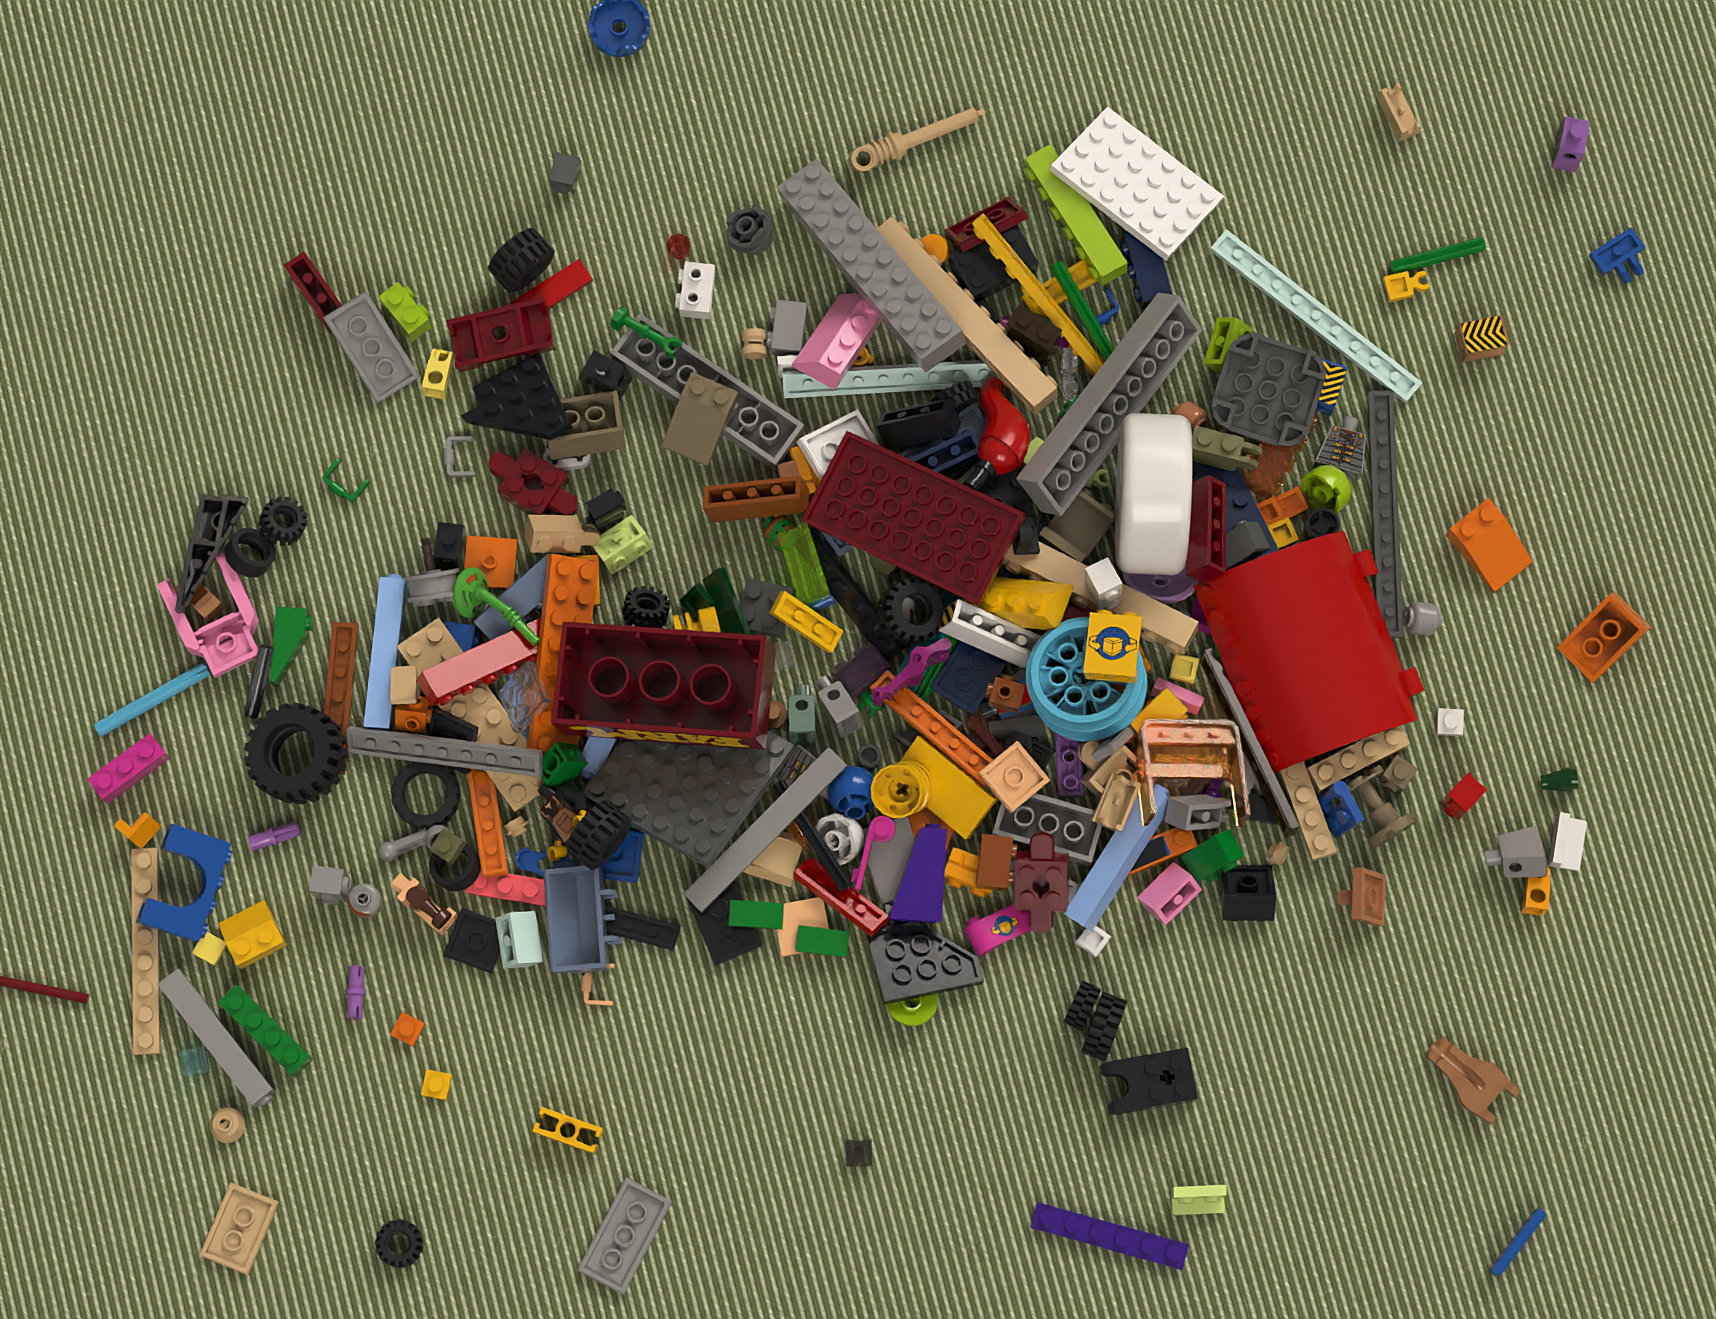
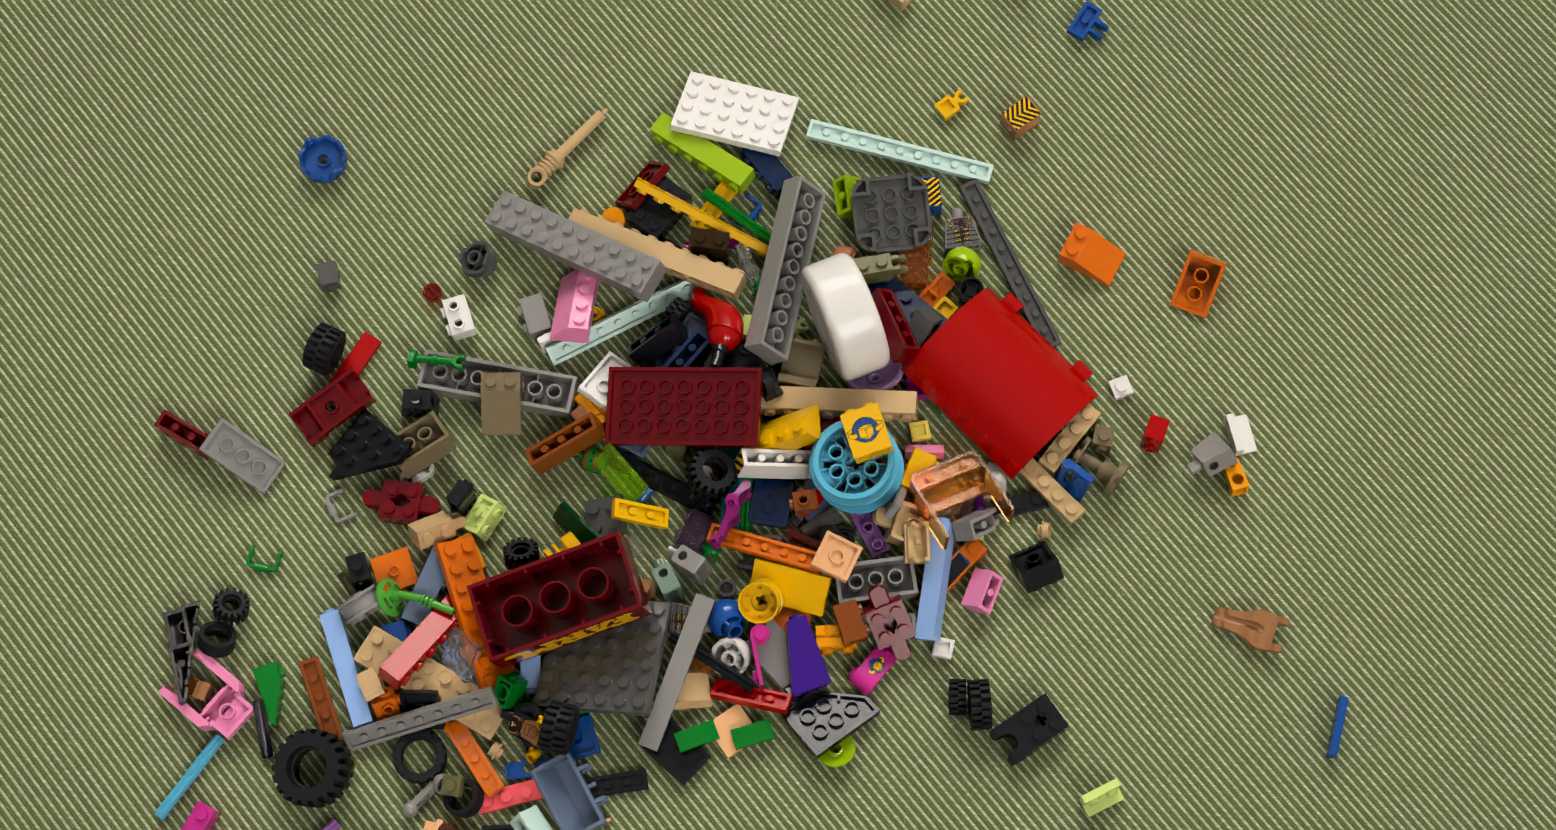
camera: 20 degrees left, 5 degrees down
(405, 312) = (256, 421): lime brick -> none
(437, 374) = (298, 455): light yellow leg -> none
(696, 599) = (554, 532): dark green plate -> none
(754, 343) = (516, 337): tan wheel -> none
(1103, 584) = (839, 393): white brick -> none
(1213, 856) = (1001, 551): green brick -> none
(1250, 744) = (996, 467): dark brown tile -> none
(1366, 897) = (1119, 532): nougat tile -> none
(1422, 618) = (1068, 324): light grey head -> none
(1437, 255) = (964, 75): green axle -> none
(1560, 780) = (1216, 393): dark green cone -> none

